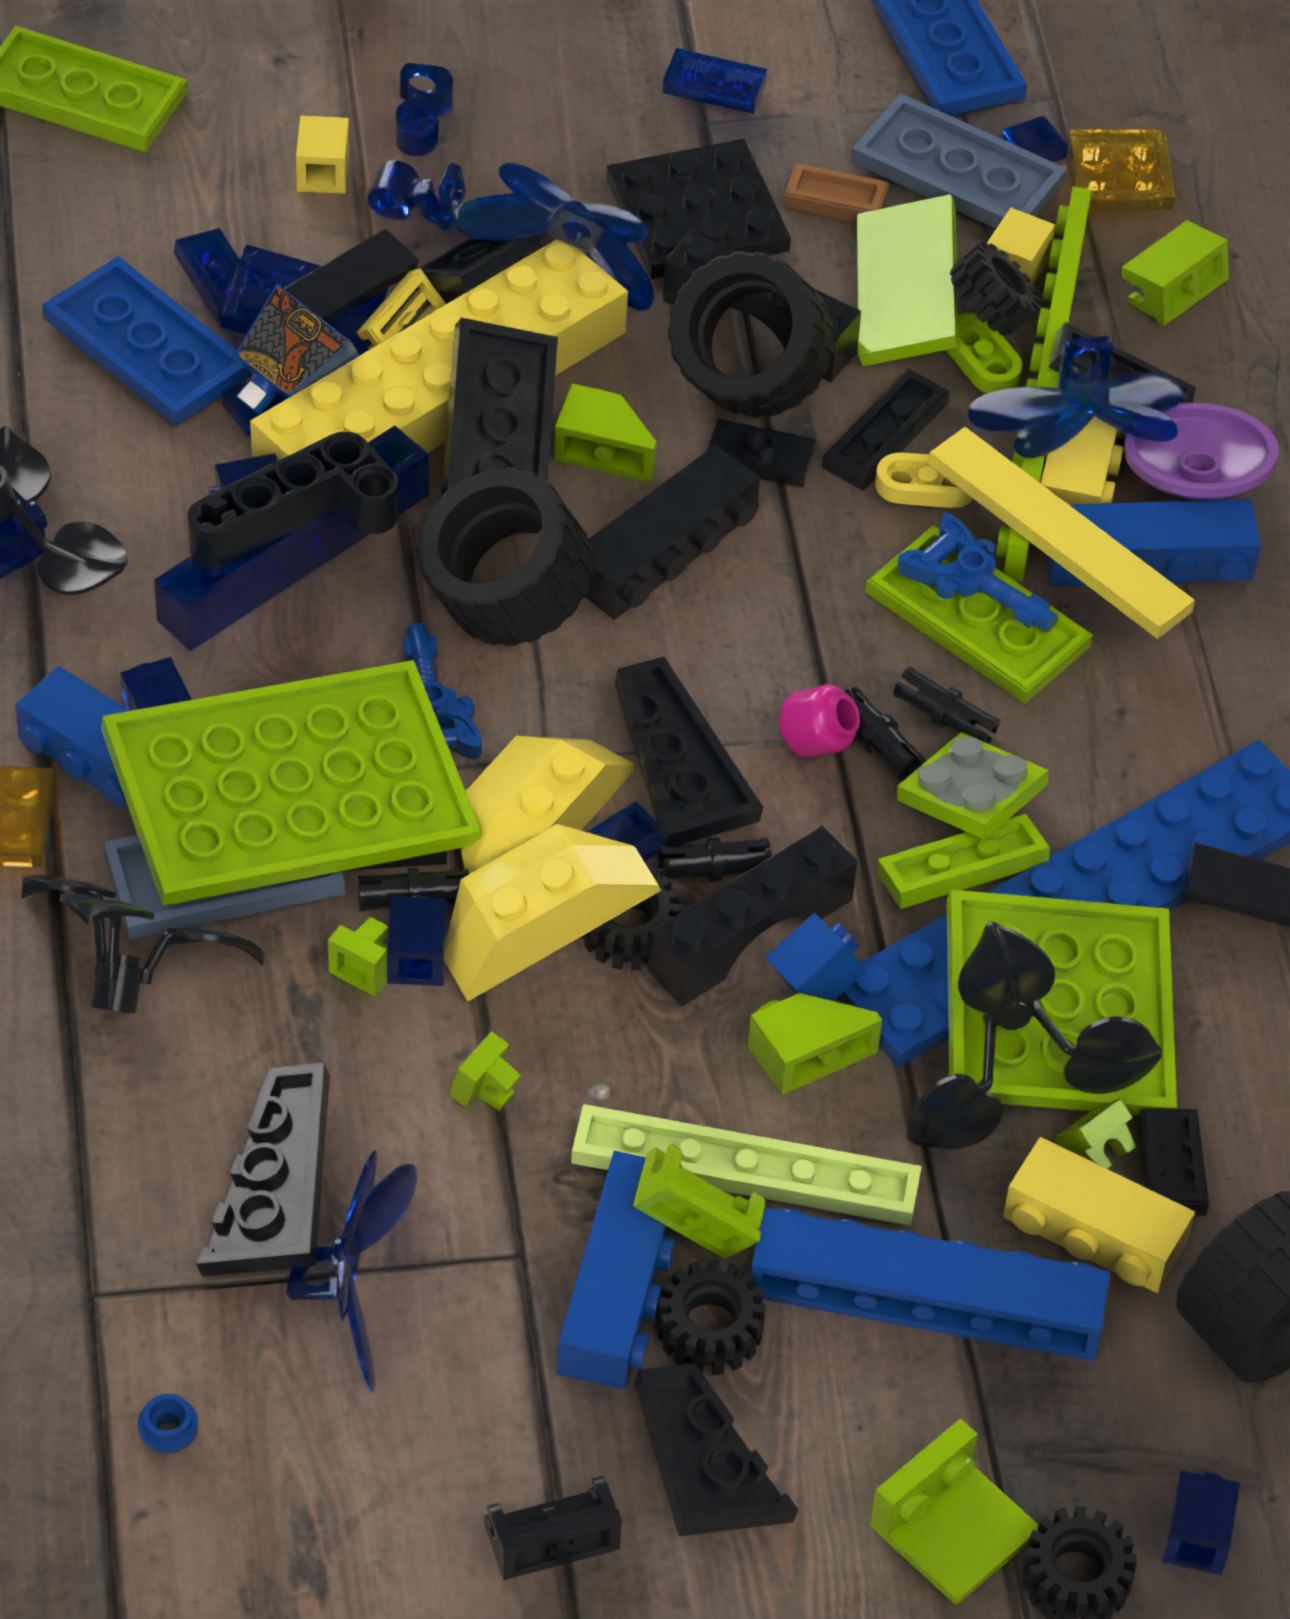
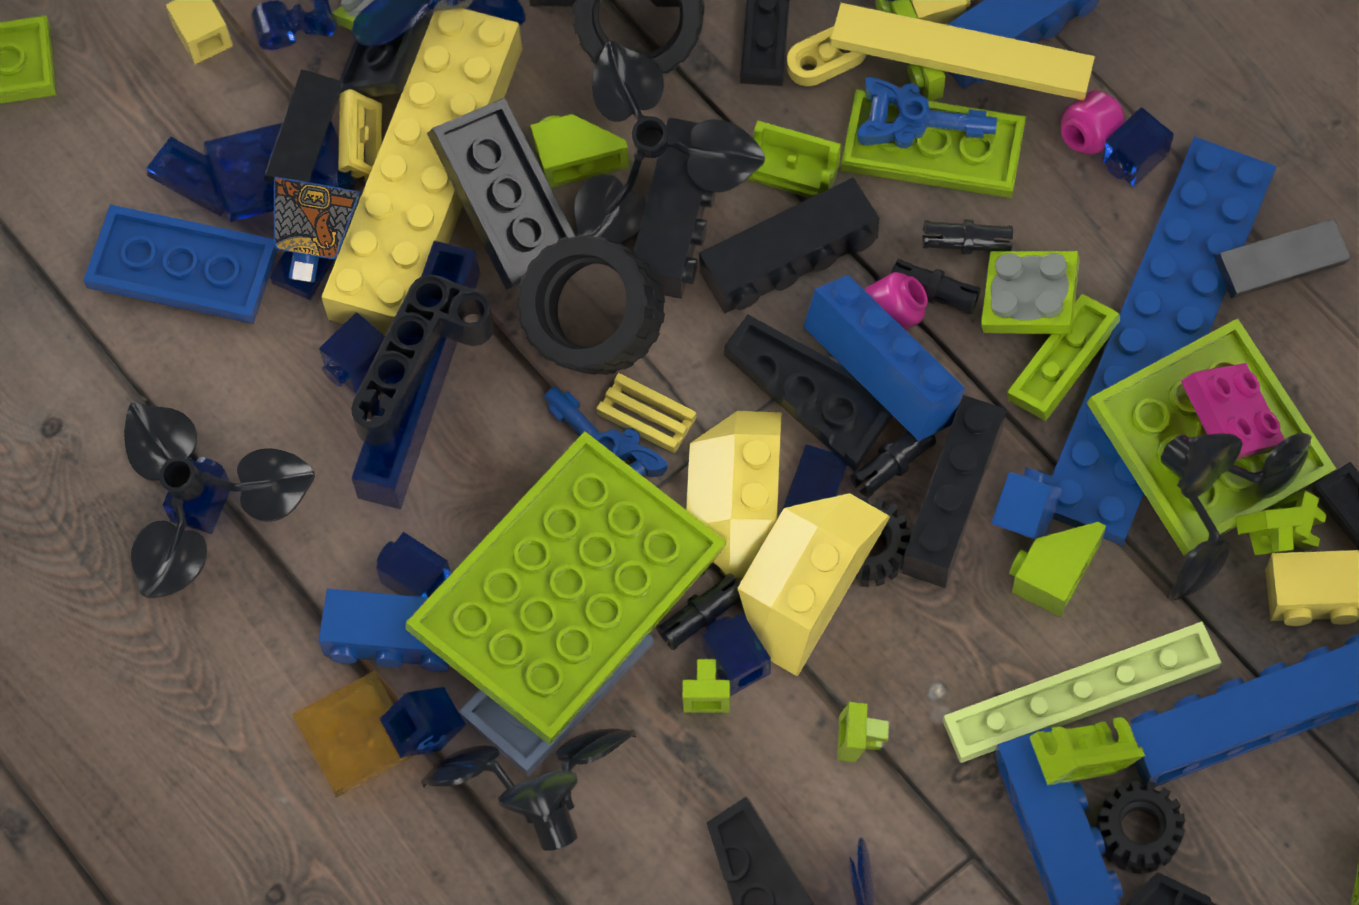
camera: 25 degrees left, 15 degrees up
(60, 828) = (422, 722): none -> clear blue brick
(481, 666) = (653, 398): none -> light yellow tile
(684, 388) = (632, 83): none -> black plant
(755, 620) = (789, 246): none -> black brick
(765, 451) = (697, 96): black plate -> none
(767, 754) = (883, 357): none -> blue brick
(817, 552) = (795, 160): none -> lime hinge
(1055, 1109) = (1270, 529): none -> lime tile
(1093, 969) = (1232, 403): none -> dark pink plate
(1157, 671) = (1090, 122): none -> dark pink head
(1187, 717) = (1137, 147): none -> clear blue brick

